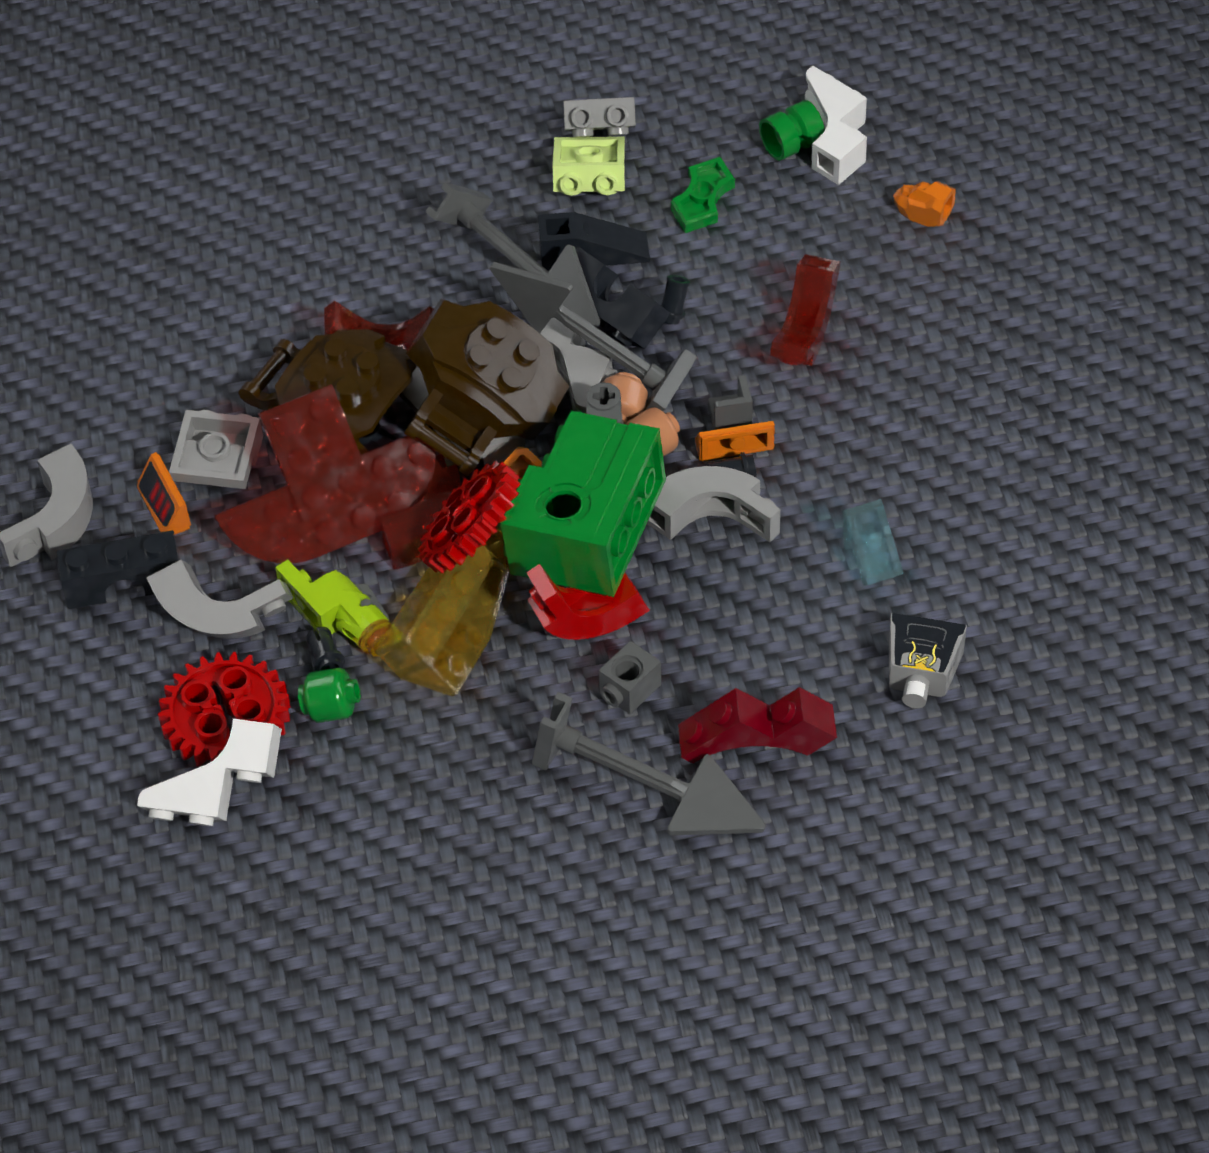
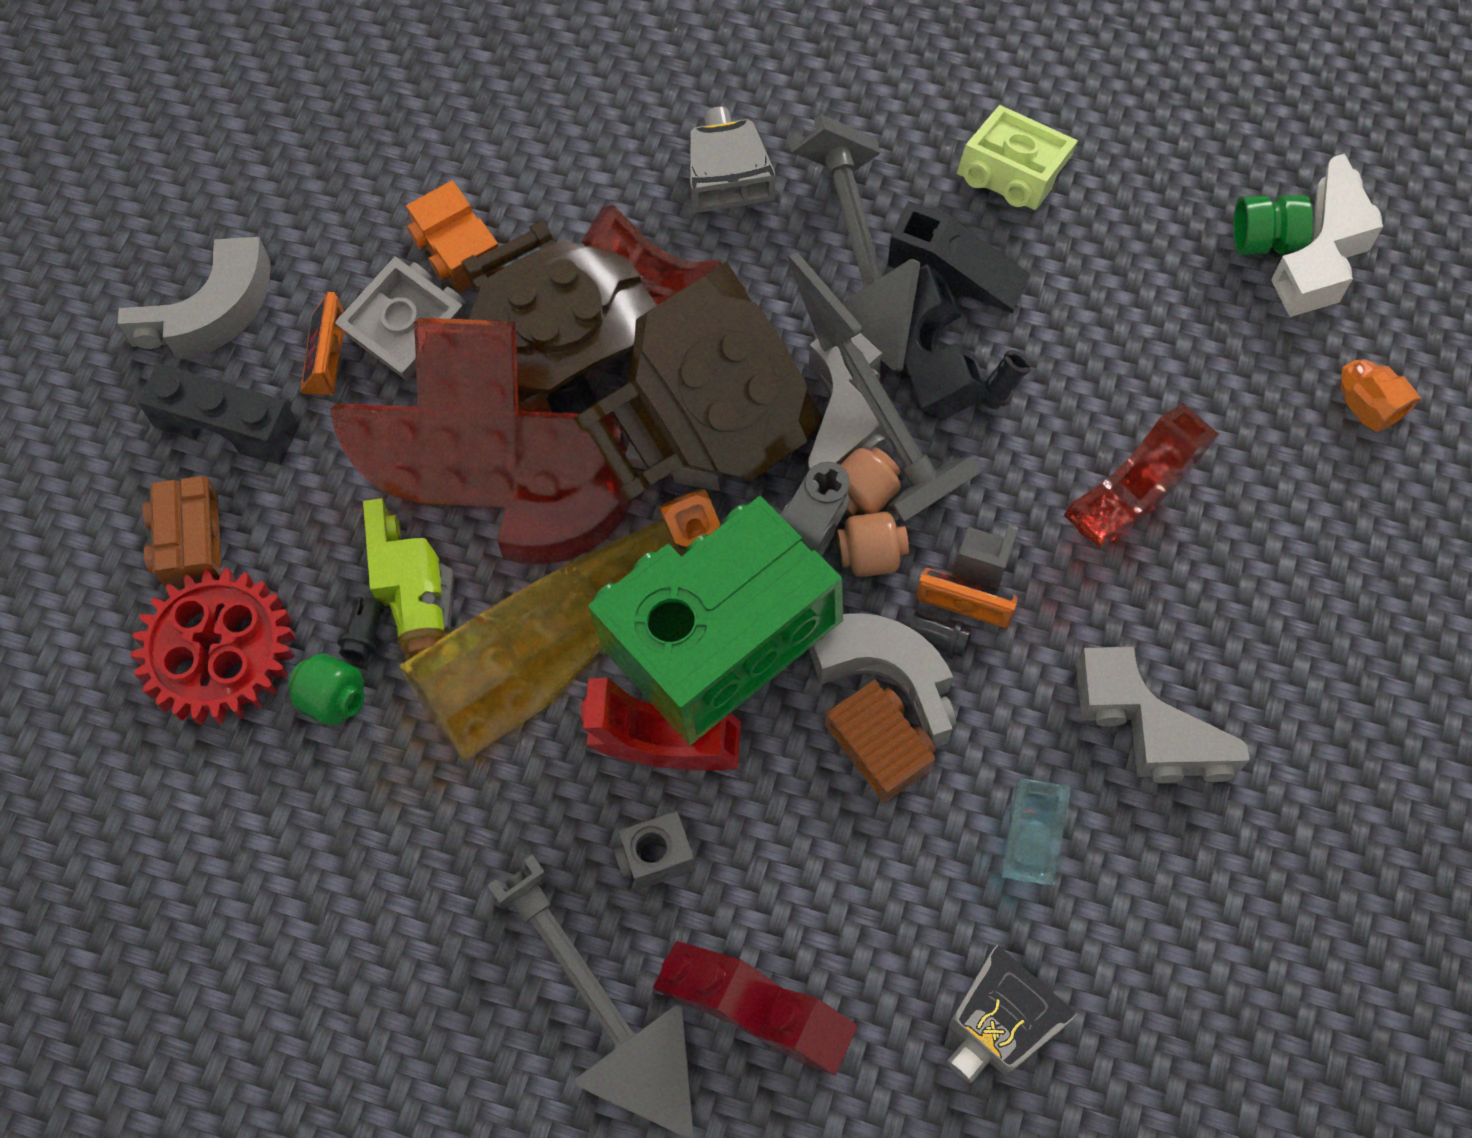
camera: 30 degrees right, 15 degrees up
(146, 651) = (183, 530): none -> dark orange brick
(185, 600) = (259, 511): light grey arch -> none
(207, 790) = (125, 743): white arch -> none
(209, 384) = (449, 232): none -> orange brick
(386, 255) = (728, 164): none -> light grey torso
(469, 517) = (578, 565): red gear -> none
(598, 114) = (1060, 101): light grey plate -> none
(697, 204) = (1108, 266): green tile -> none
(735, 545) = (881, 740): none -> dark orange brick
(918, 456) = (1164, 738): none -> light grey arch

